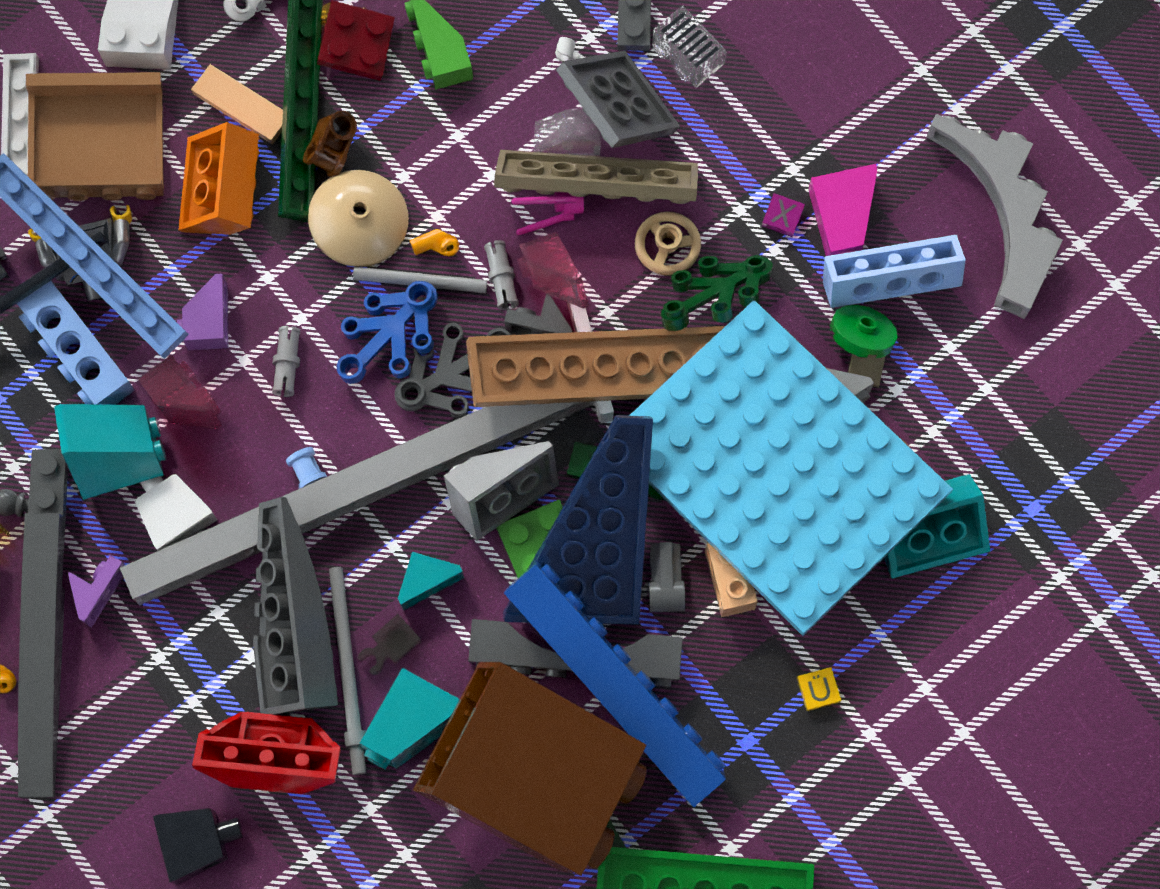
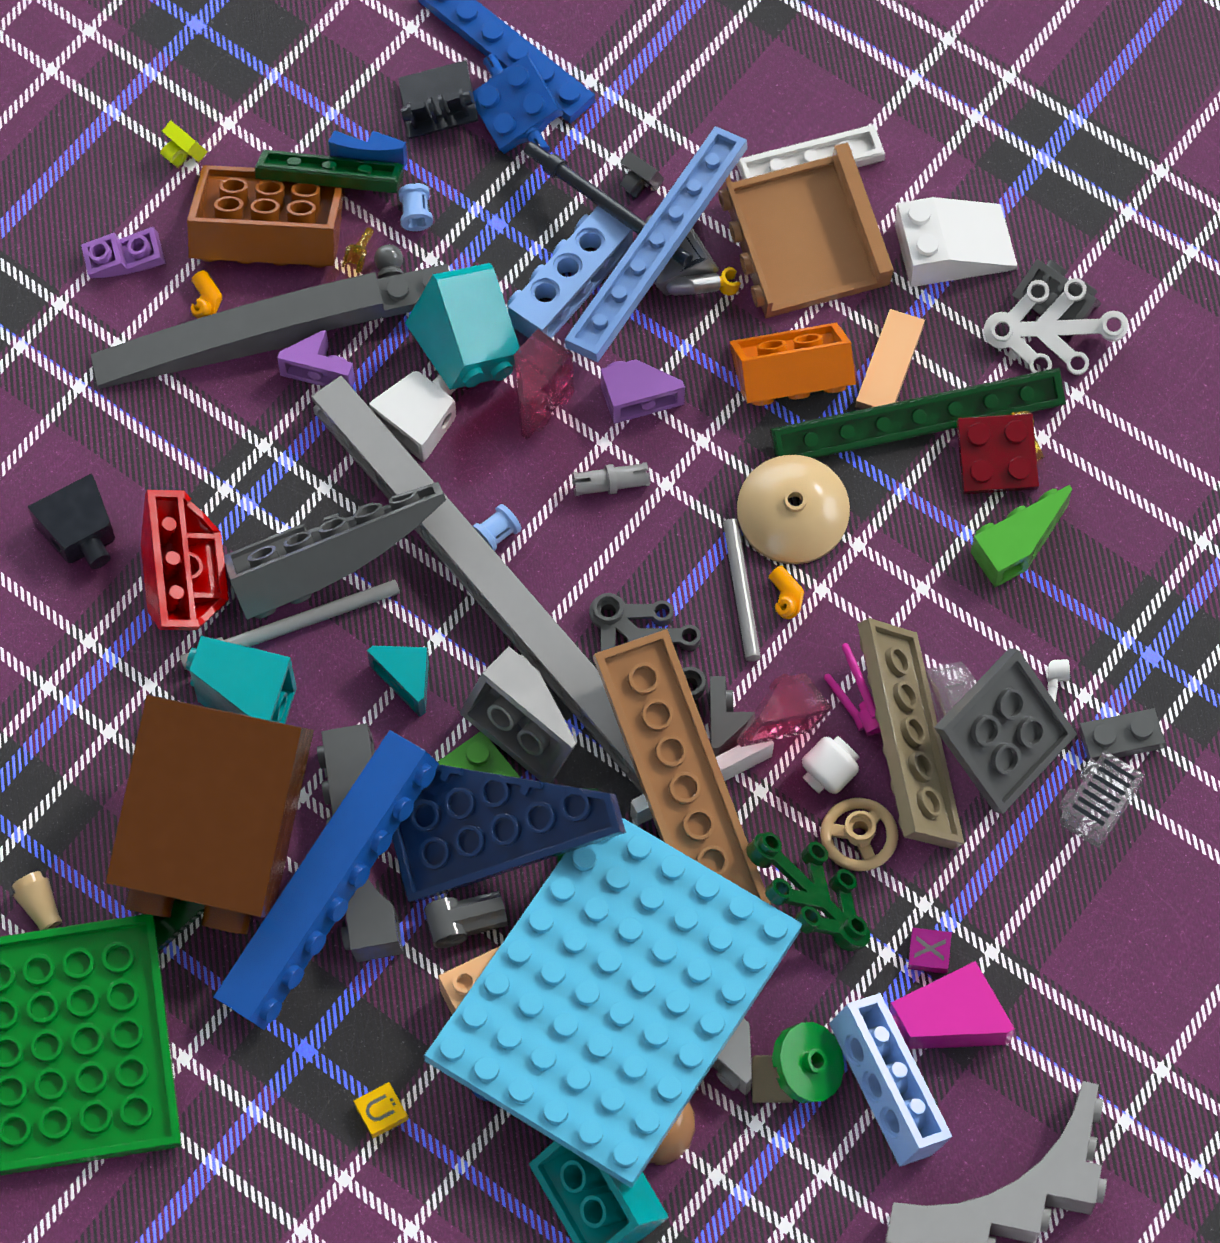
camera: 75 degrees right, 10 degrees down
(327, 147) = (863, 456): reddish brown piece -> none
(389, 328) = (672, 571): blue plant -> none
(393, 642) = (328, 660): clear smoke plate -> none
(501, 275) = (768, 667): light grey pin -> none
(605, 247) = (830, 765): none -> white head

